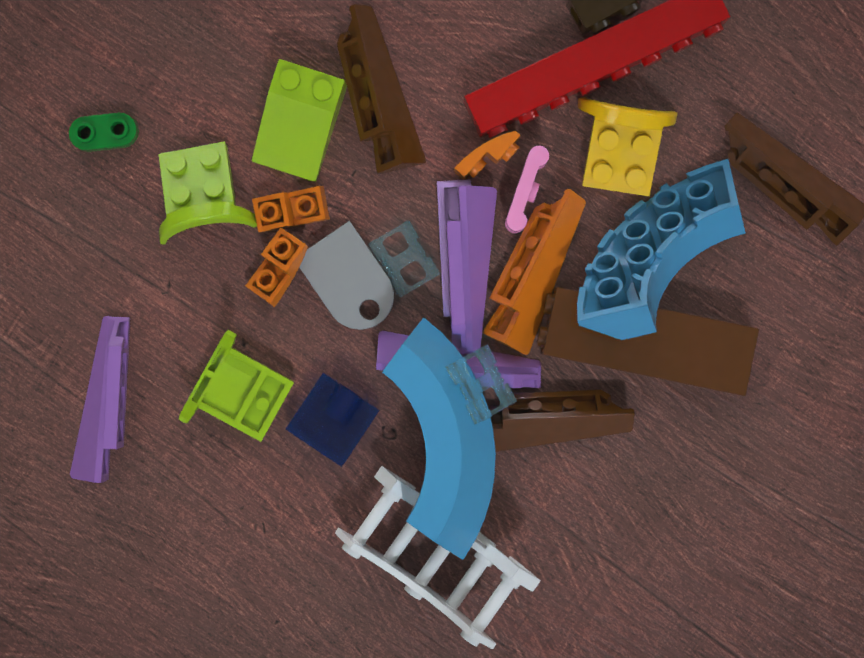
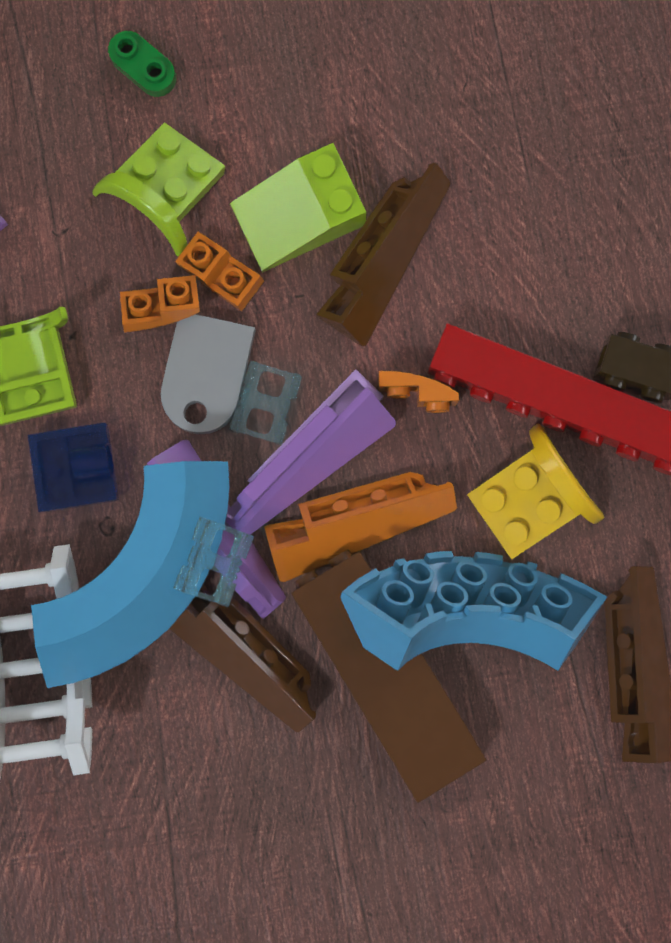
camera: 50 degrees right, 5 degrees down
(526, 189) = (419, 448): bright pink plate -> none

